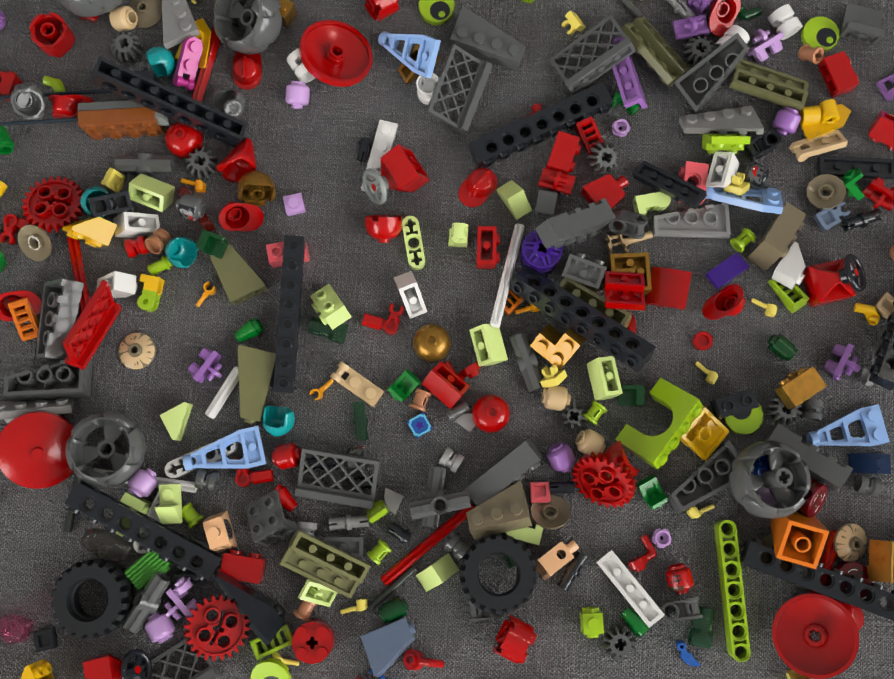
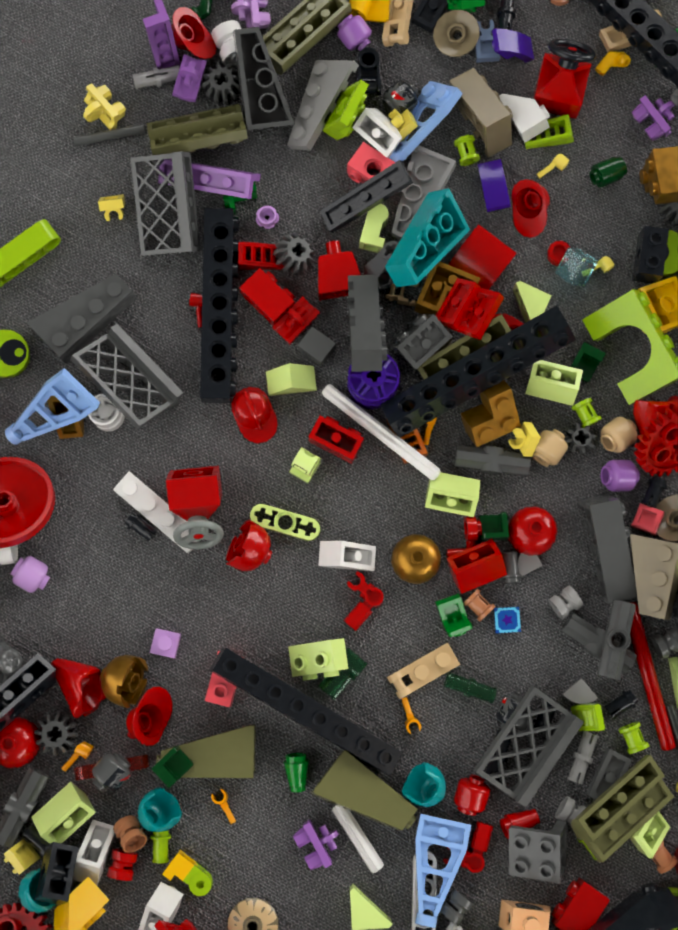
camera: 70 degrees left, 0 degrees up
(479, 385) = (494, 527): none -> dark green panel
(657, 335) = (530, 300): none -> yellowish green slope
(660, 239) = (427, 239): none -> teal wedge
(698, 356) = (576, 267): none -> clear light blue panel
(839, 231) = (511, 44): none -> dark purple slope

